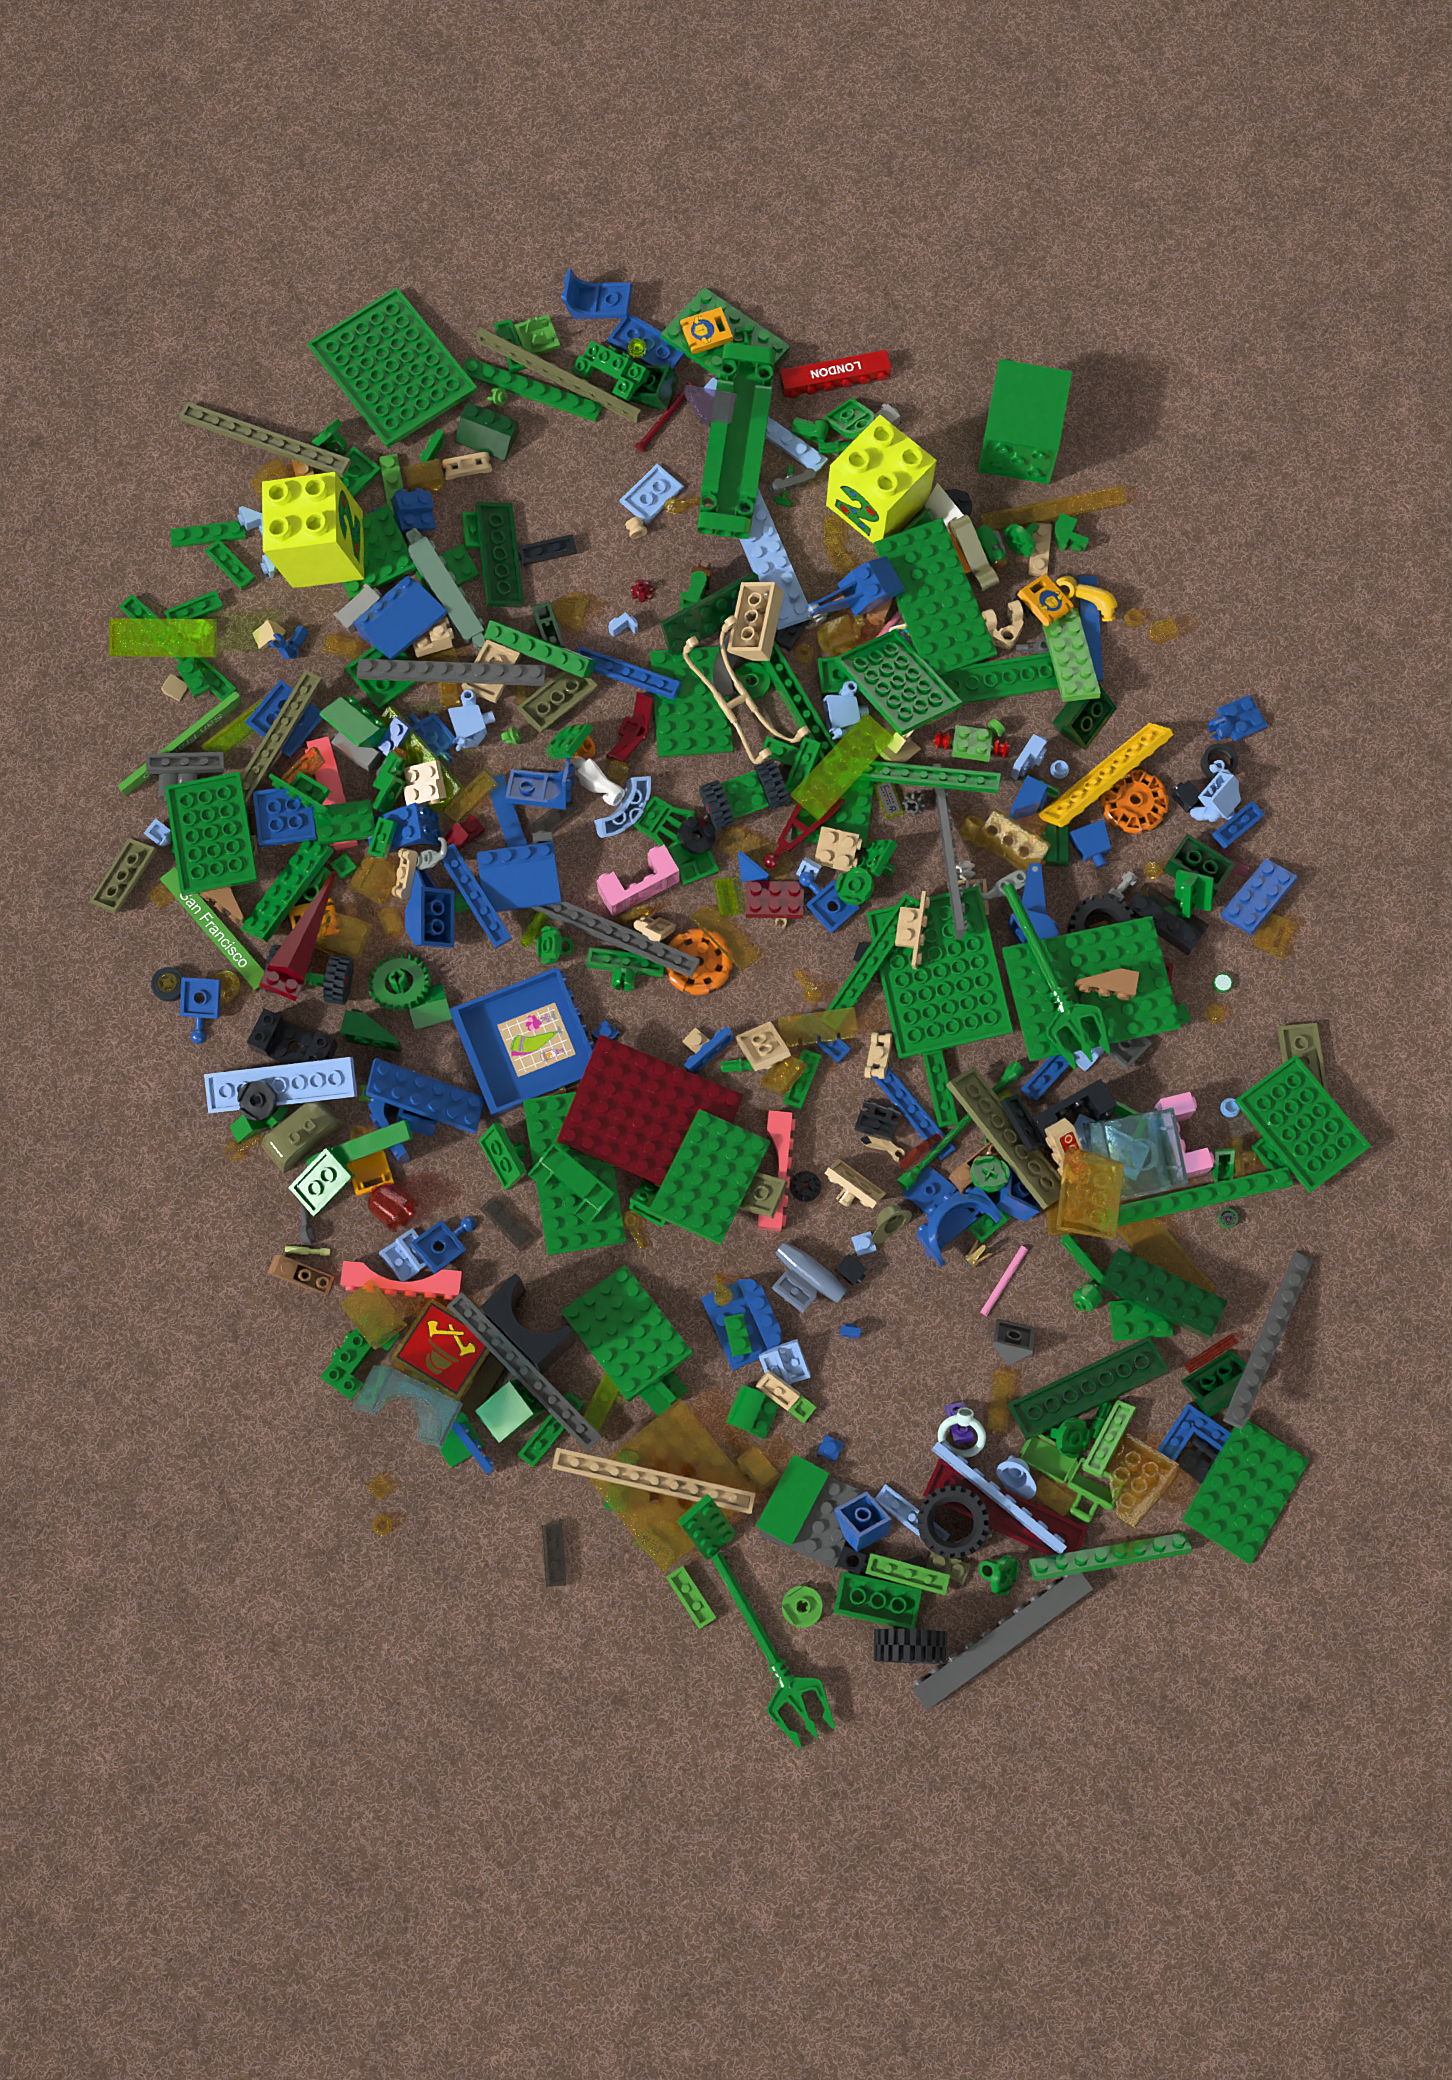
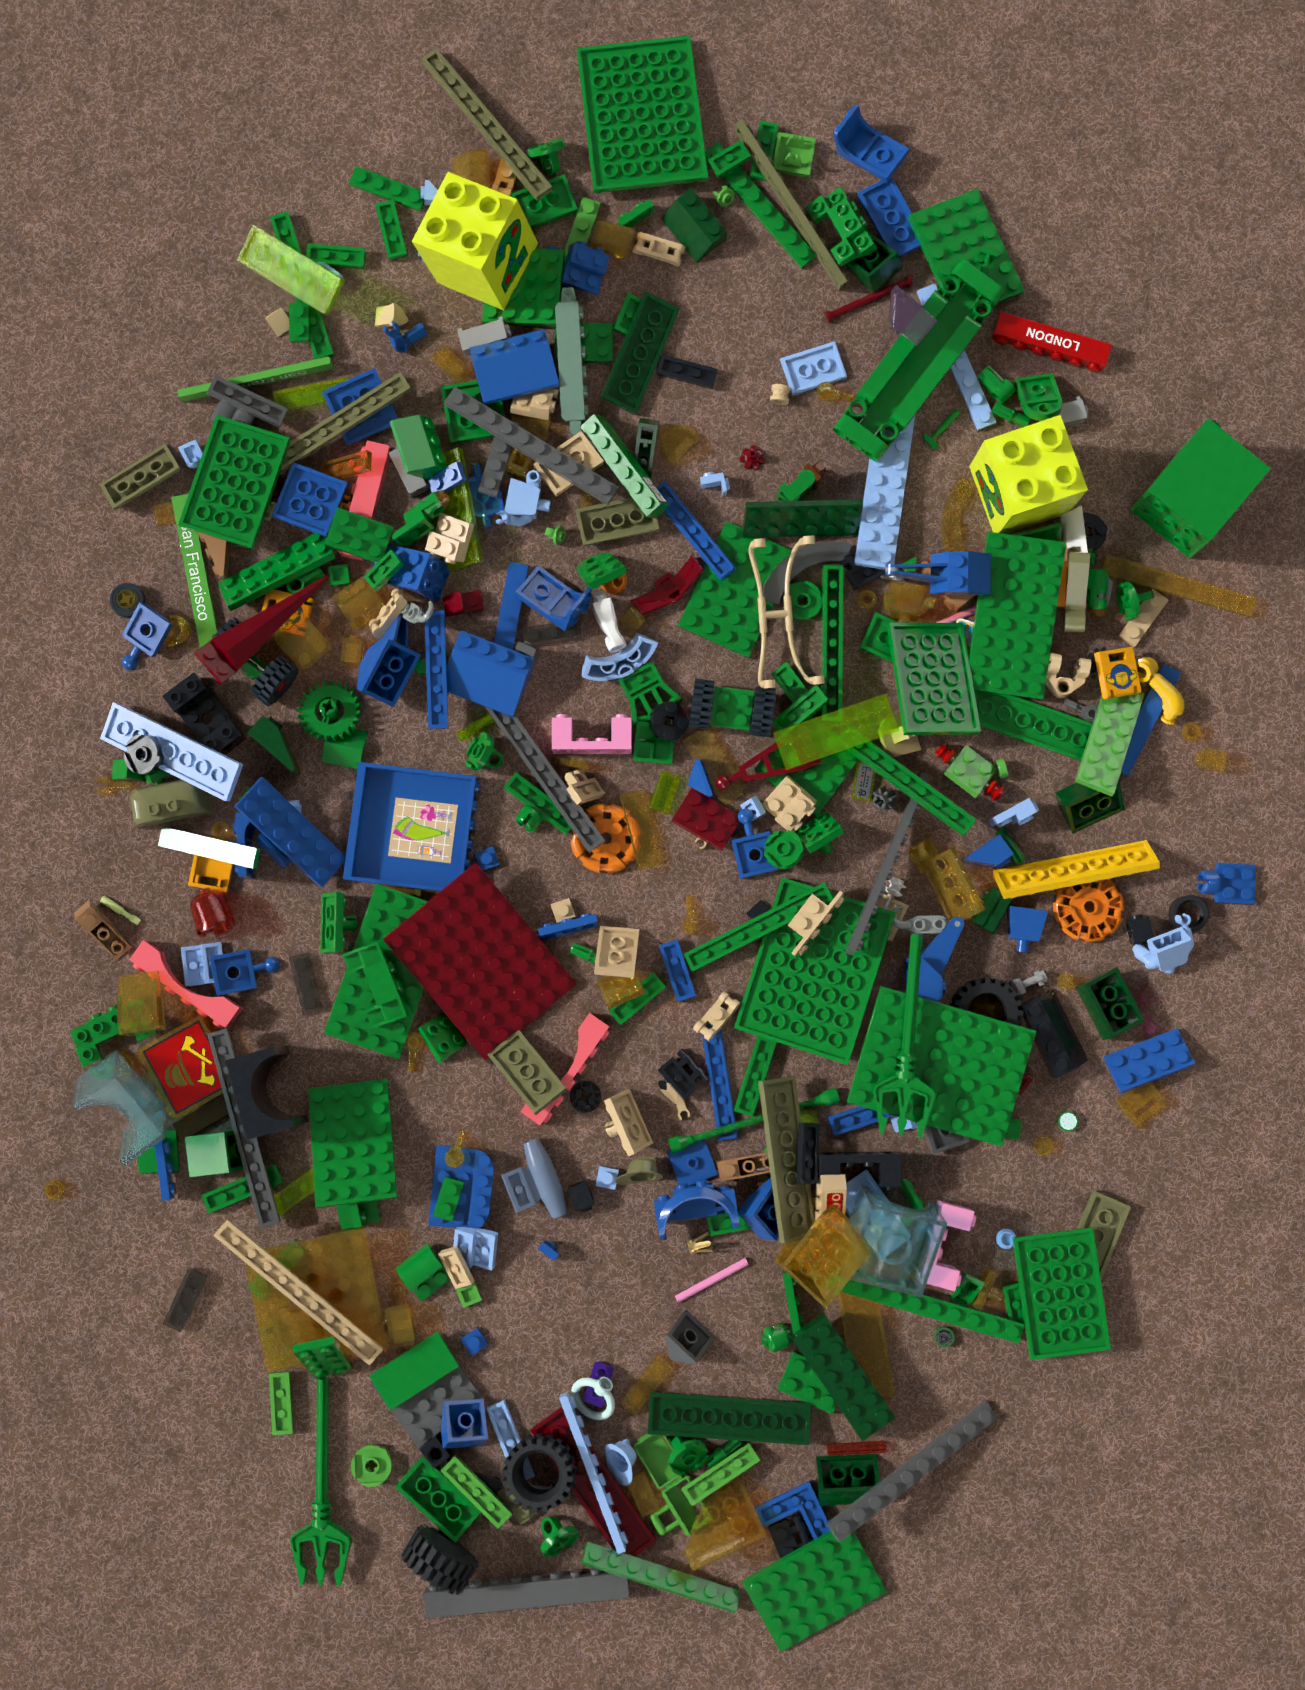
camera: 30 degrees right, 10 degrees up
(306, 1233) = (127, 895): dark grey plate -> none
(307, 790) = (339, 490): green bracket -> none
(321, 1181) = (162, 857): plate -> none
(379, 1486) = (70, 1155): clear yellow tile -> none
(429, 707) = (495, 467): none -> dark grey plate
(471, 796) = (487, 572): clear yellow plate -> none
(486, 364) = (729, 159): none -> green plate
(636, 347) = (879, 216): clear neon green tile -> none
(703, 331) = (948, 235): light orange container -> none
(709, 1177) = (500, 1046): green plate -> none
(757, 620) = (835, 548): tan slope -> none
(791, 482) = (948, 427): dark grey plate -> none
(819, 1023) = (682, 959): clear yellow windscreen -> none
(843, 710) = (868, 678): light blue torso -> none
(919, 1150) = (705, 1123): clear red tile -> none
(989, 1174) = (750, 1184): green tile -> none
(1059, 769) = (1037, 839): light blue plate -> none
(1064, 535) = (1174, 615): green brick -> none
(1115, 982) = (964, 1075): medium nougat slope -> none
(1193, 892) = (1089, 1025): green bracket -> none
(1238, 824) = (1170, 983): blue plate -> none

